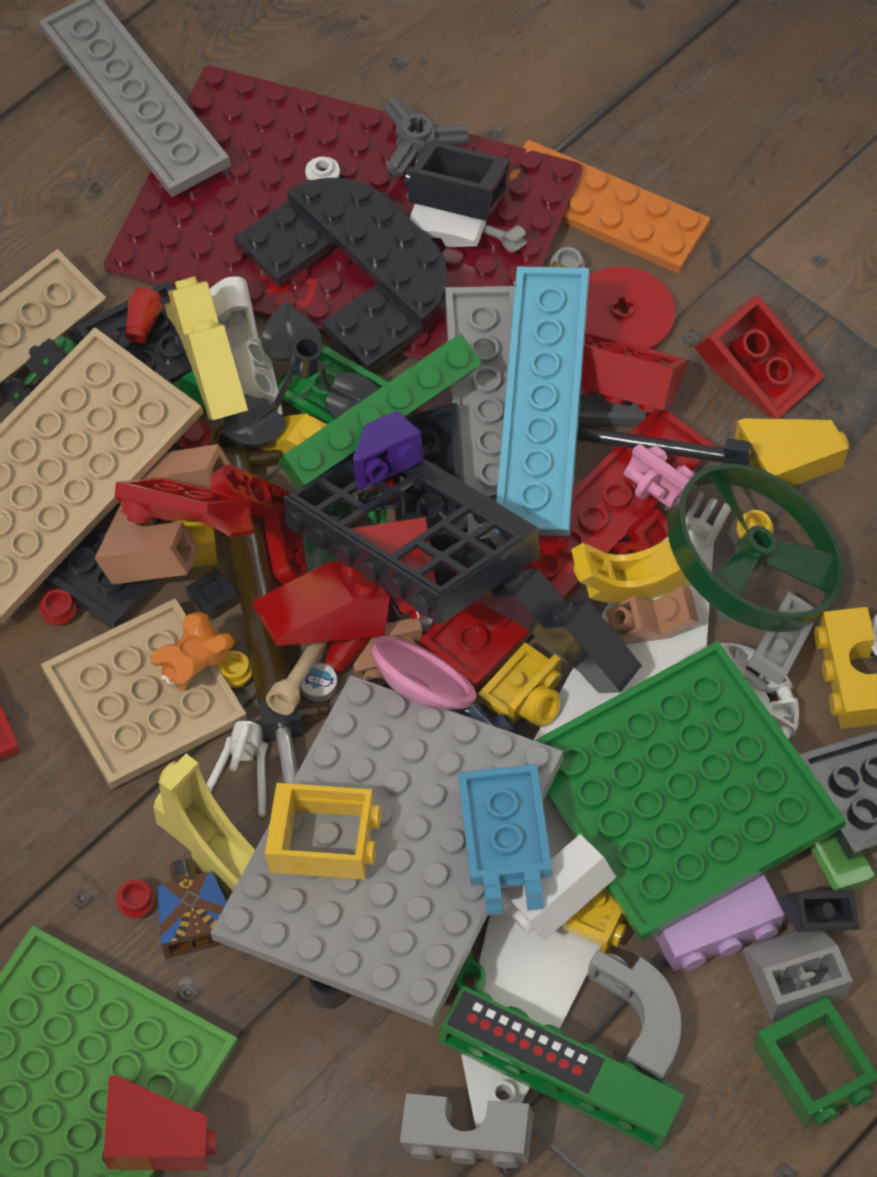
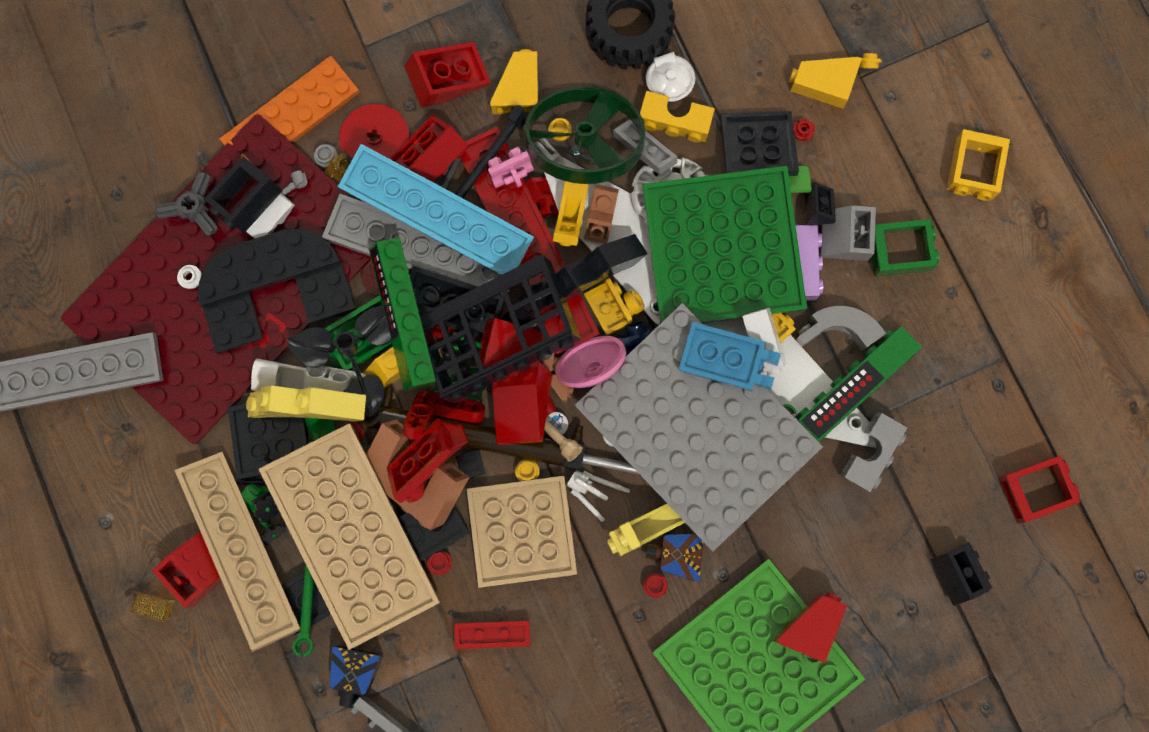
camera: 65 degrees left, 20 degrees up
(142, 313) = (251, 433): red cone -> none
(197, 649) = (515, 487): orange animal -> none
(321, 800) = (688, 433): yellow window -> none
(386, 449) = (436, 320): dark purple slope -> none

